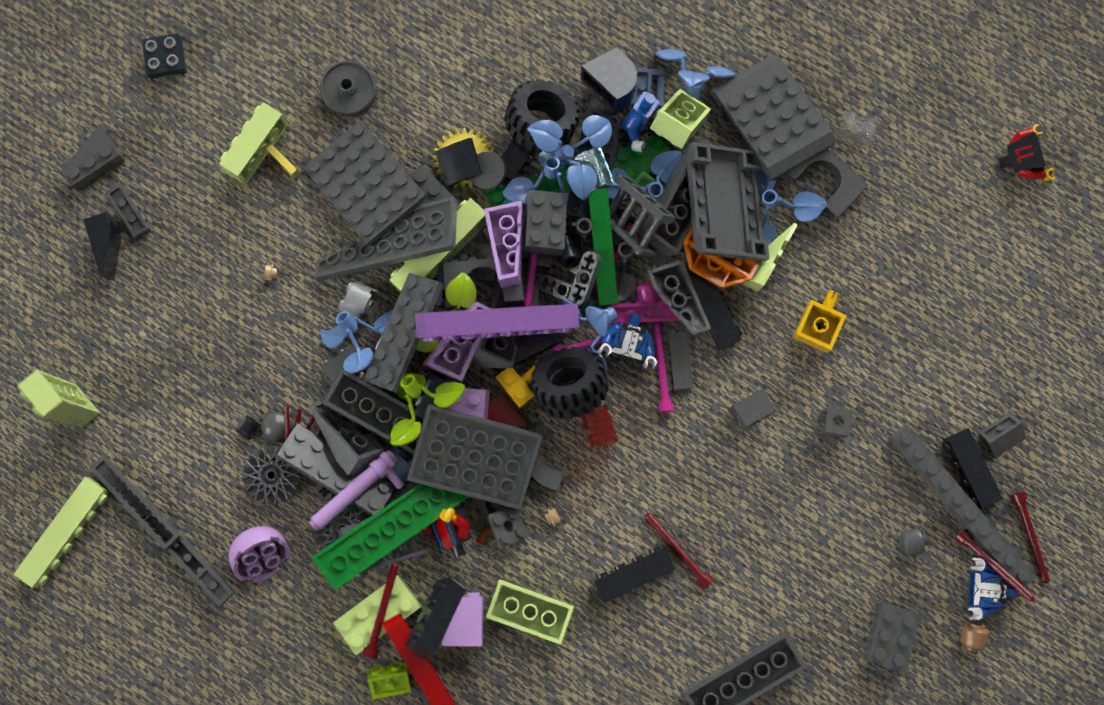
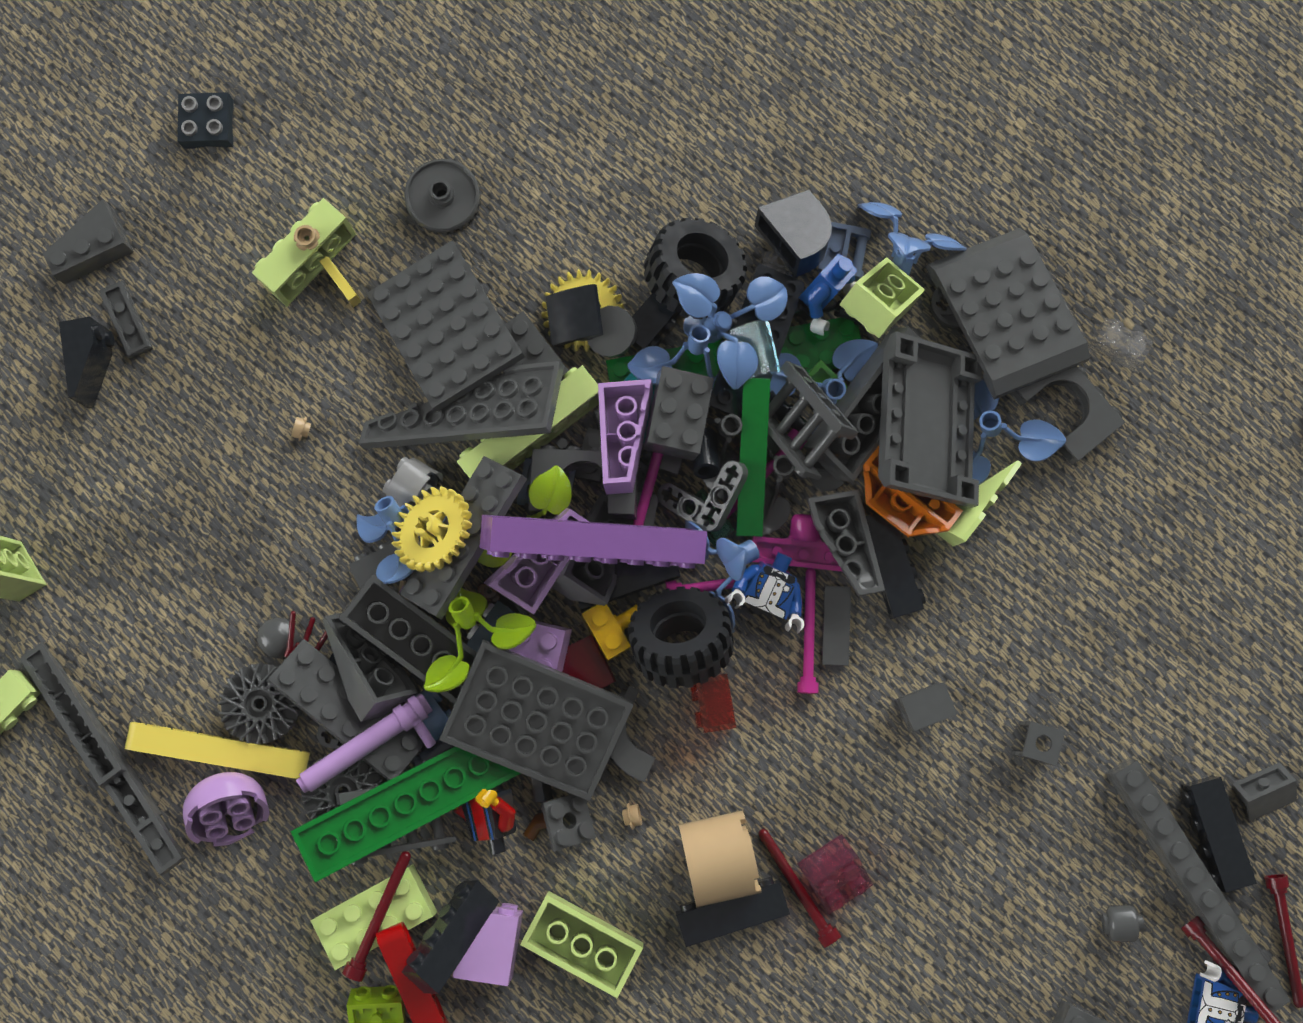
camera: 10 degrees right, 0 degrees up
(244, 513) = (216, 750): none -> light yellow beam
(248, 427) = (239, 633): black bush -> none
(255, 128) = (300, 234): none -> tan plate
(372, 326) = (423, 523): none -> light yellow gear
(619, 535) = (720, 858): none -> tan brick
(704, 537) = (835, 874): none -> clear pink slope
(830, 321) = (1047, 598): yellow brick -> none

